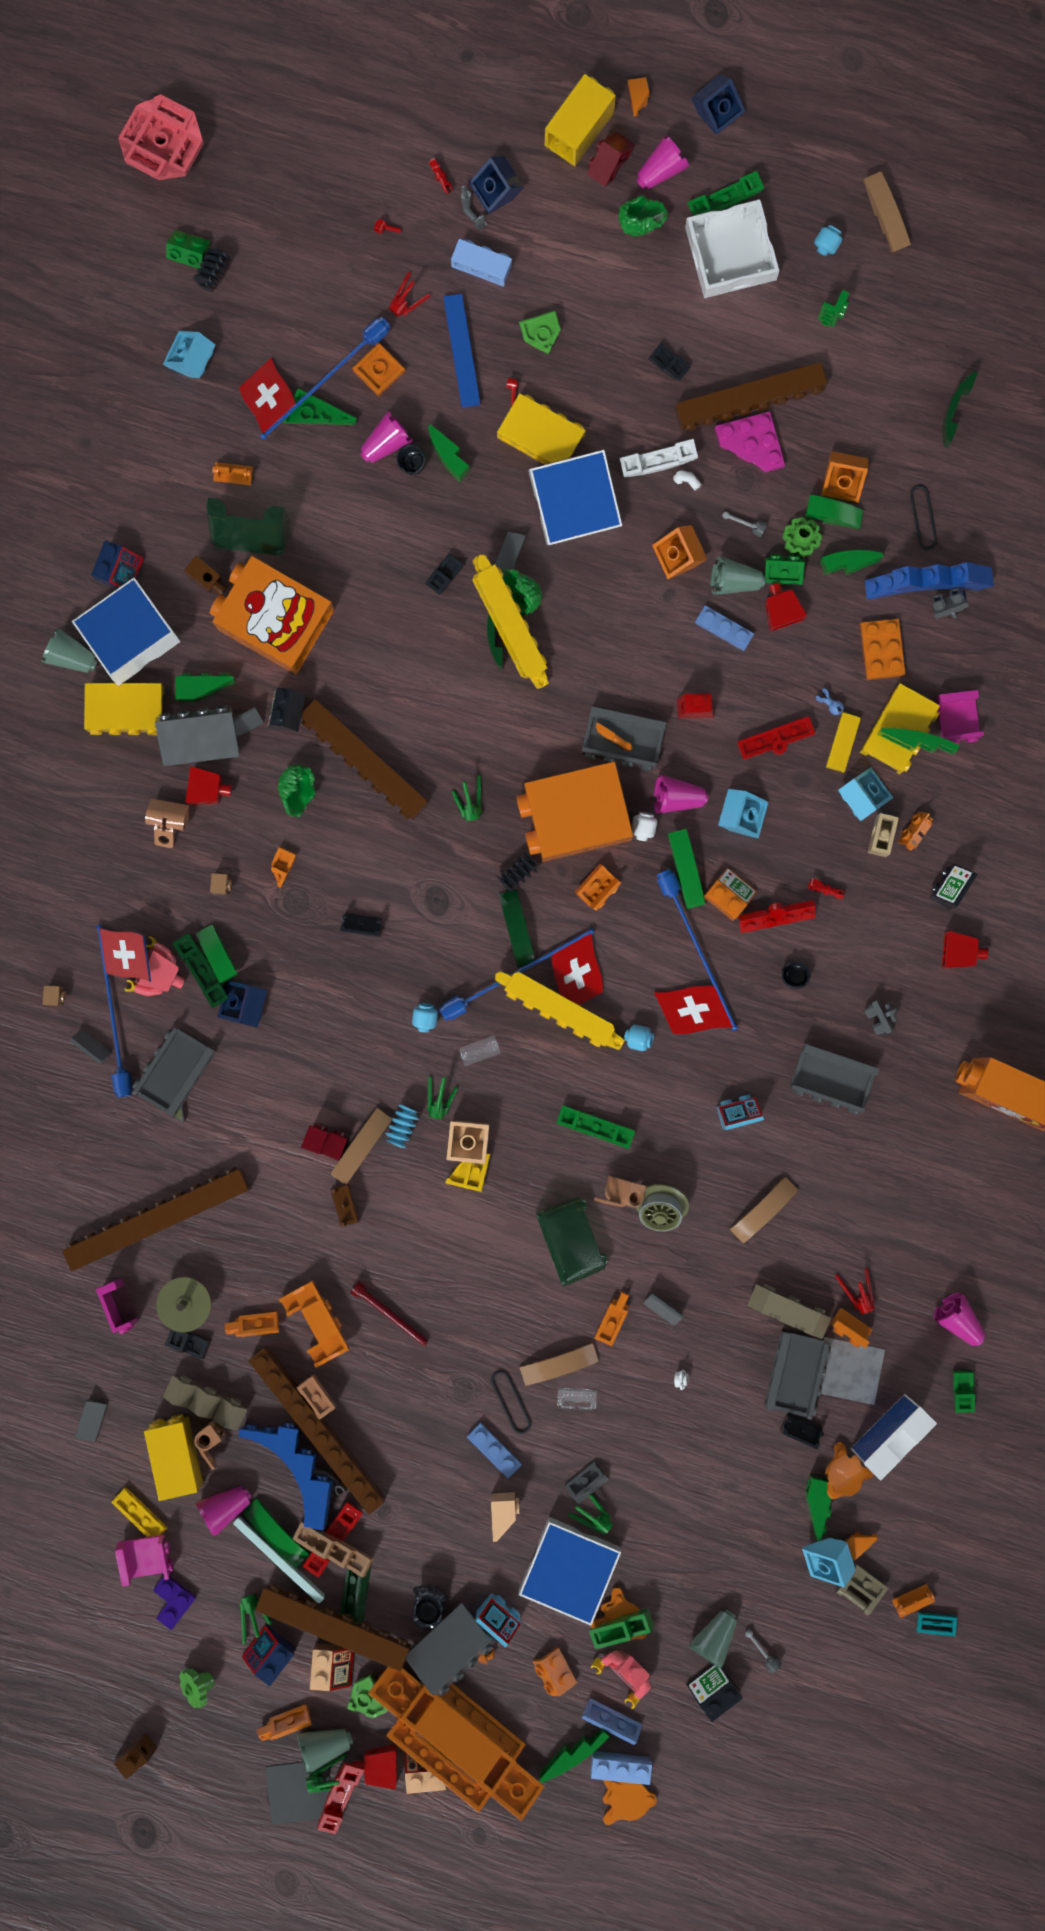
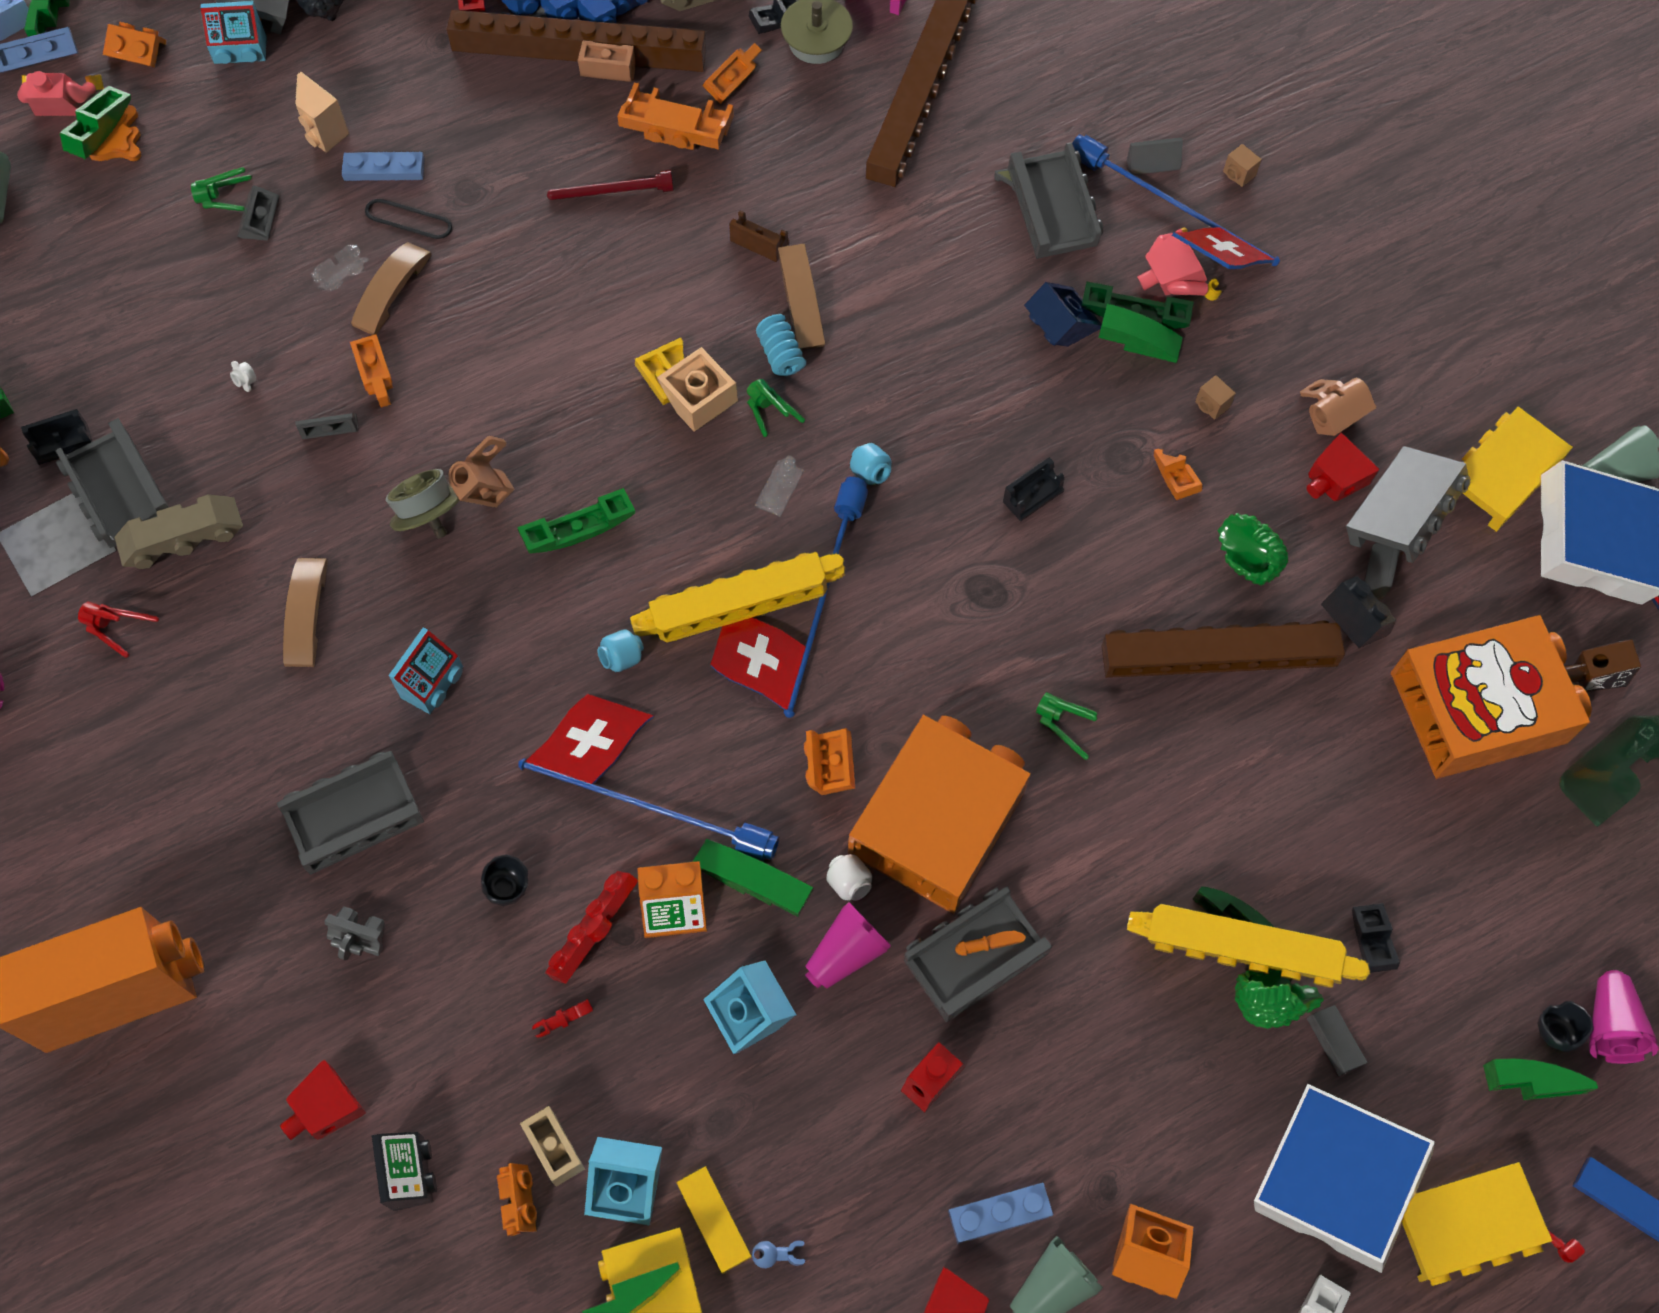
camera: 135 degrees right, 20 degrees down
(196, 688) = (1464, 557): green slope -> none
(325, 1142) = (844, 266): dark red brick -> none
(517, 872) = (932, 688): black piece -> none
(517, 928) = (875, 638): dark green slope -> none
(569, 1571) = (199, 127): blue tile -> none
(571, 1240) = (494, 390): clear green windscreen -> none
(776, 739) = (799, 1137): red hinge -> none
(852, 1327) = (88, 575): orange bracket -> none

